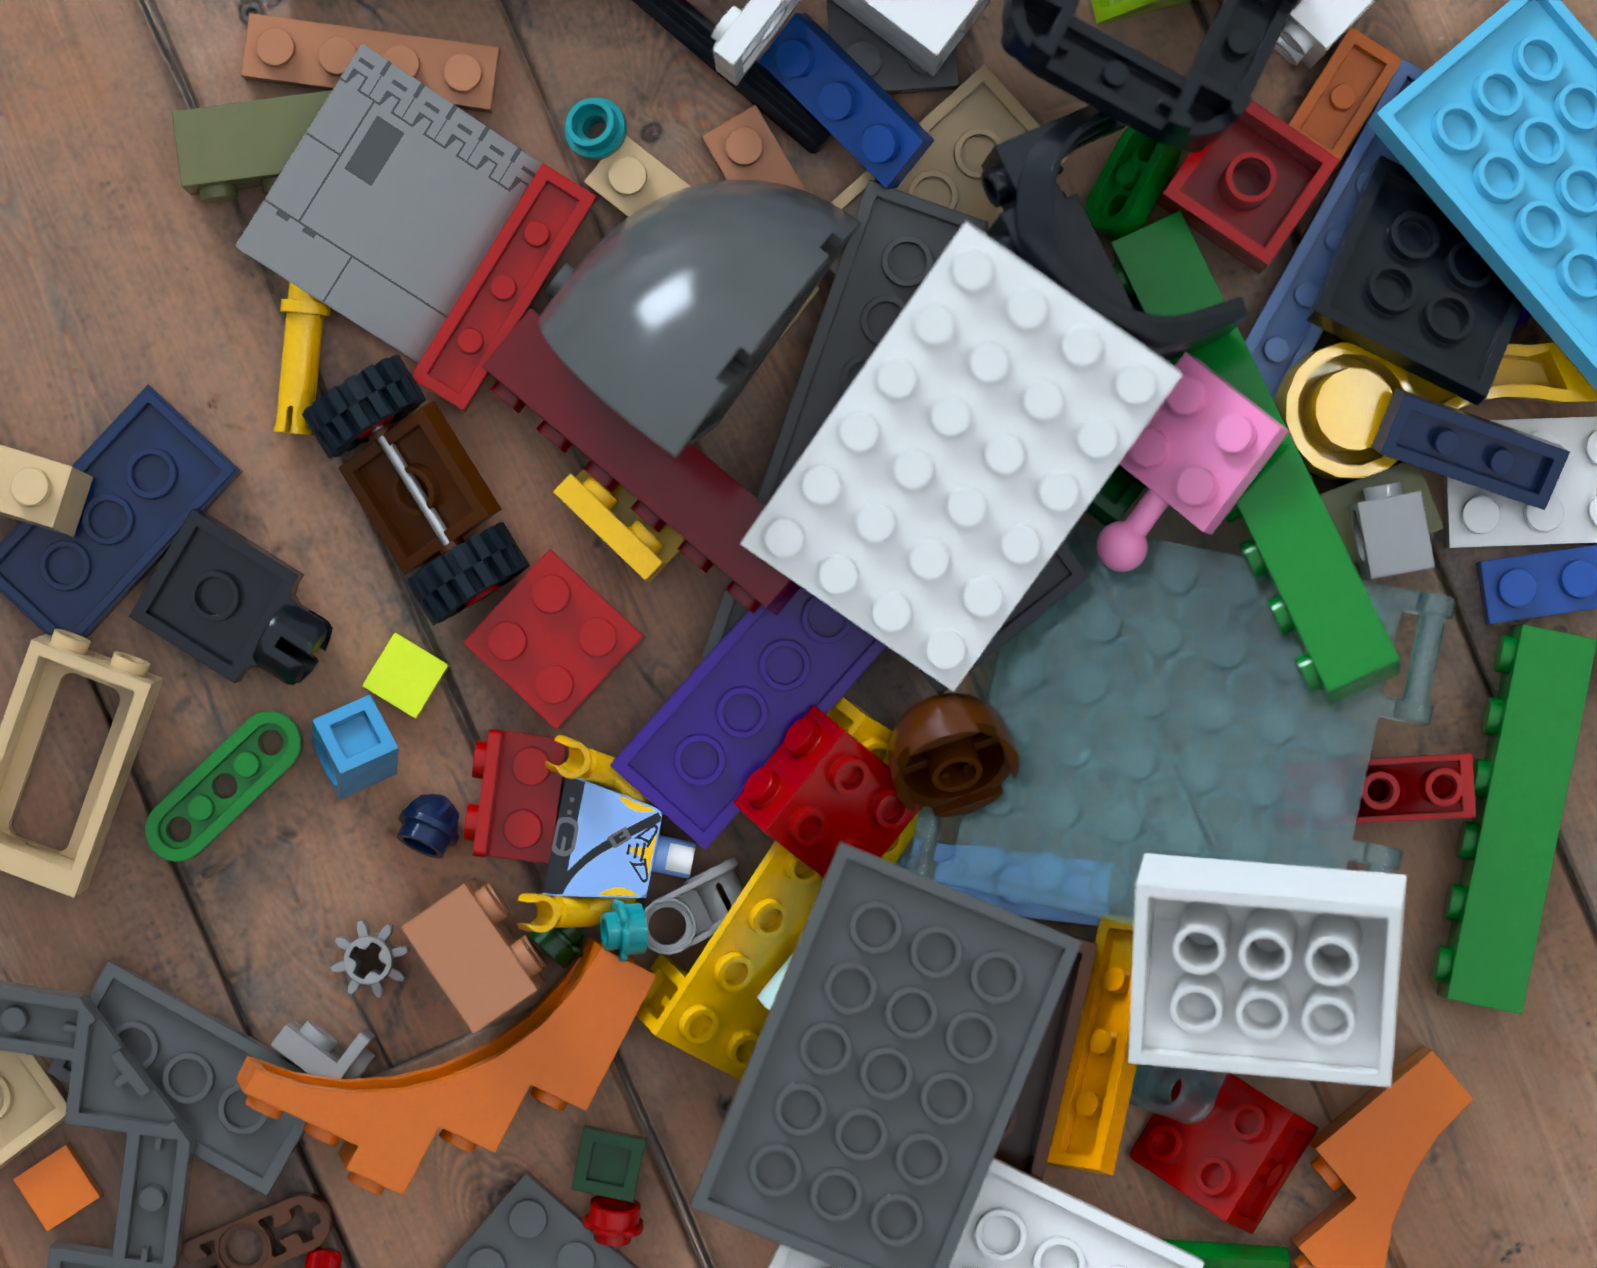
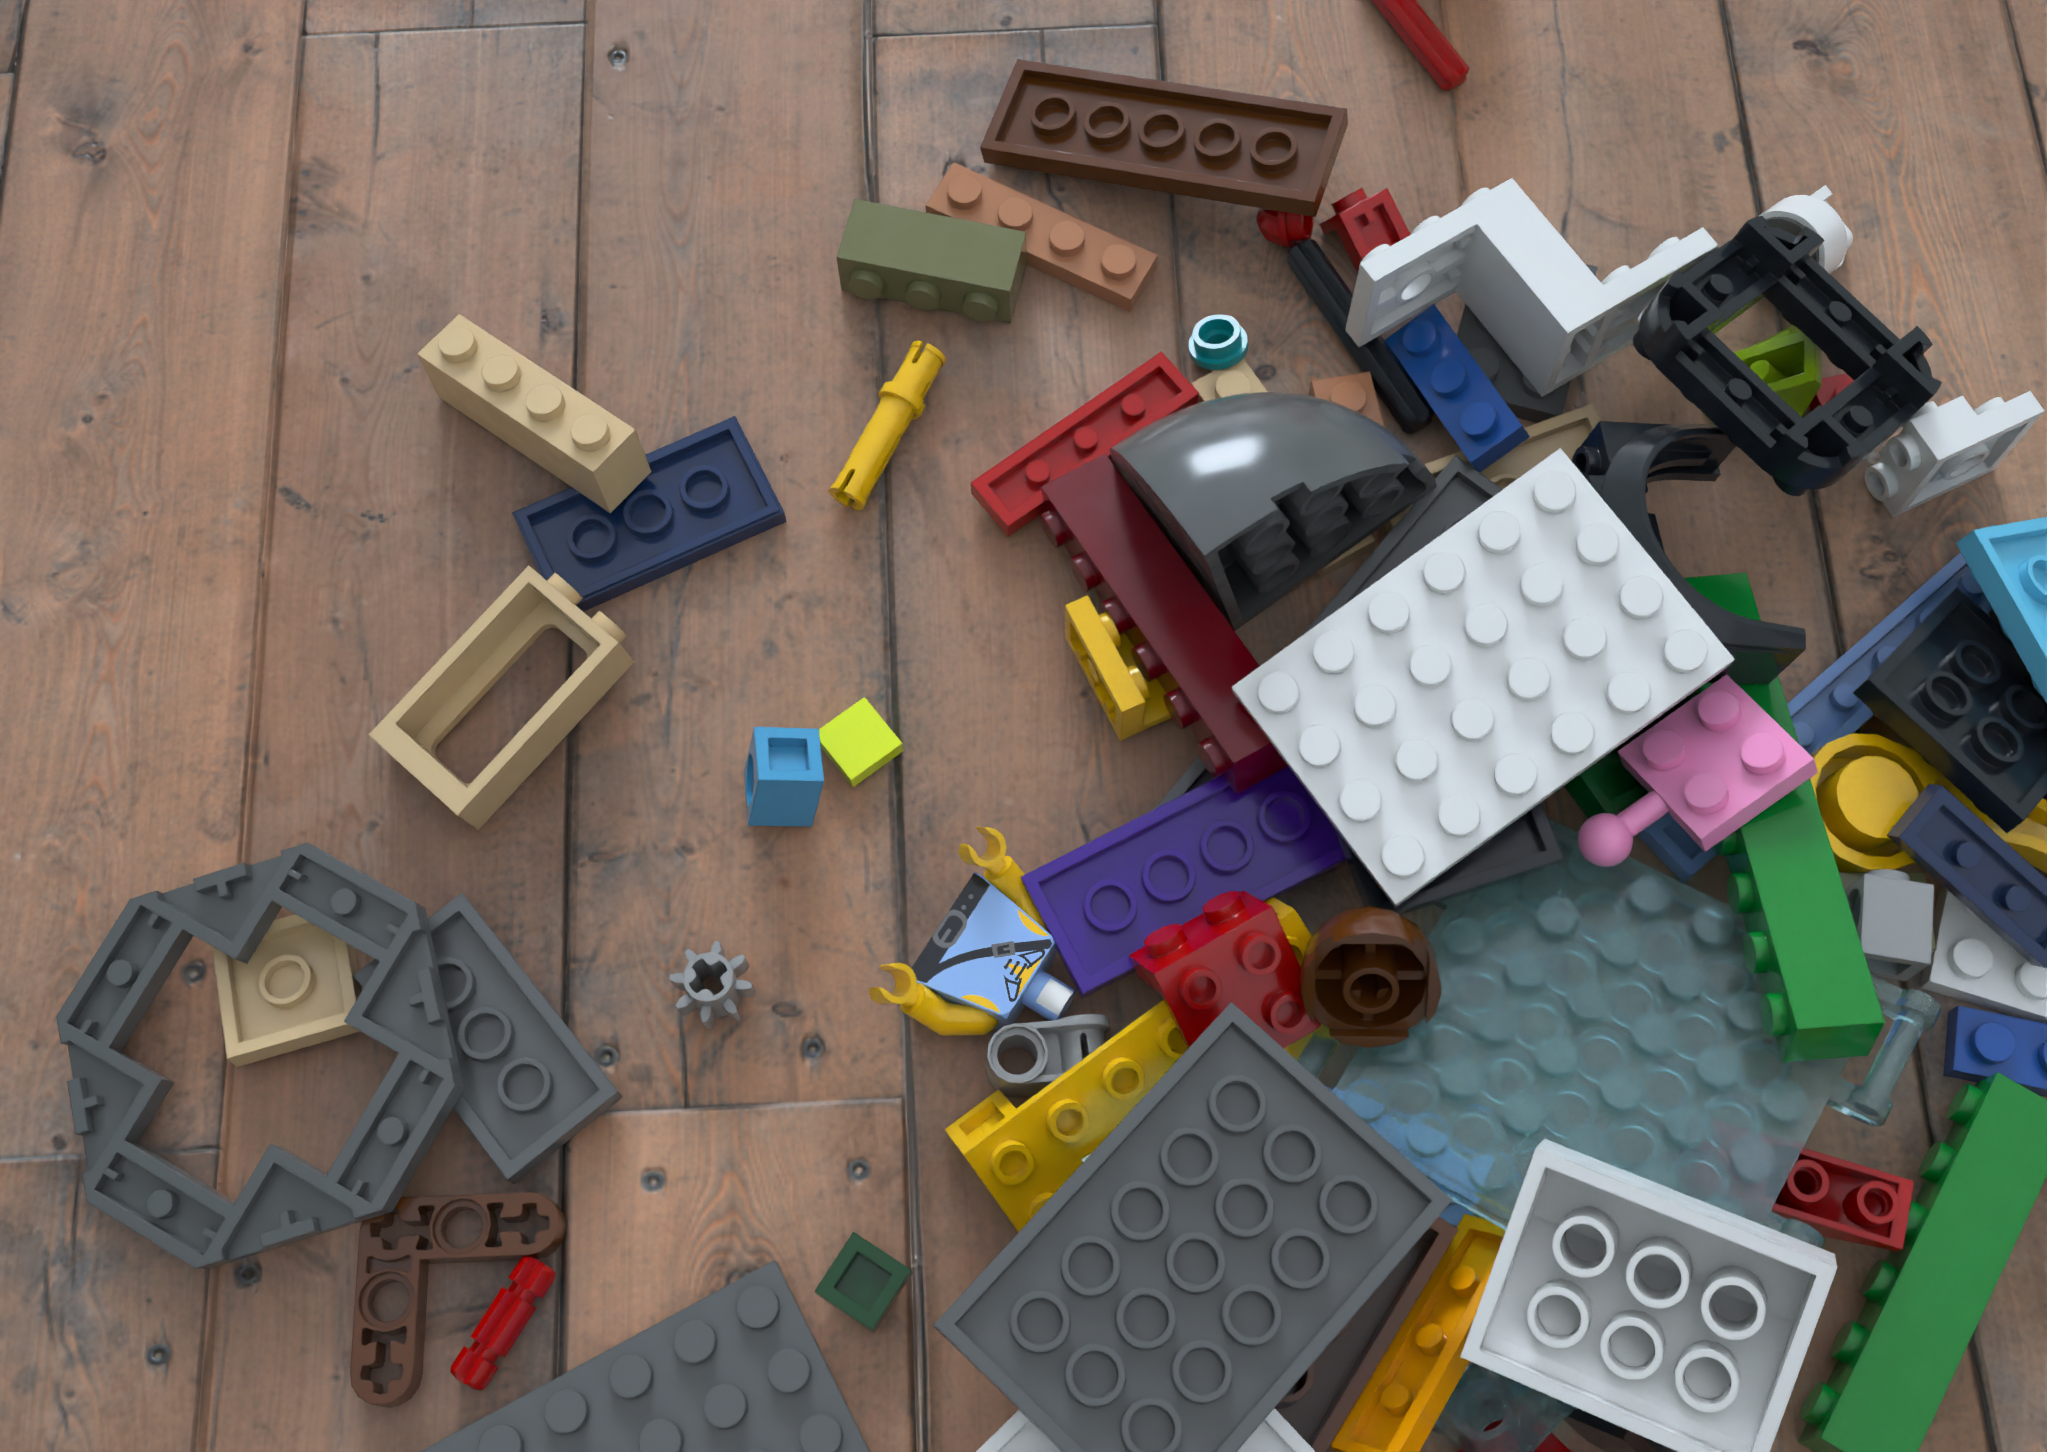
camera: 25 degrees right, 20 degrees down
(58, 1187) = (311, 1098): orange tile -> none
(197, 794) = (617, 776): green plate -> none
(231, 604) = (725, 618): black plate -> none
(313, 1051) = (619, 1050): light grey bracket -> none
(389, 204) = (1008, 332): light grey sticker -> none
(391, 1120) = (660, 1141): orange arch -> none
(417, 487) = (939, 572): plate -> none
(429, 825) = (821, 882): dark blue plate -> none
(476, 953) = (813, 1010): nougat brick -> none
(517, 796) = (913, 885): red bracket -> none
(554, 639) = (1013, 750): red brick -> none
(559, 943) = (901, 1037): dark green plate -> none
(613, 1221) = (845, 1345): red plate -> none
(624, 929) = (973, 1037): teal plate -> none
(1130, 184) = (1711, 536): green plate -> none
(1250, 186) = (1821, 569): red brick -> none
(1345, 92) = (1919, 542): orange plate -> none

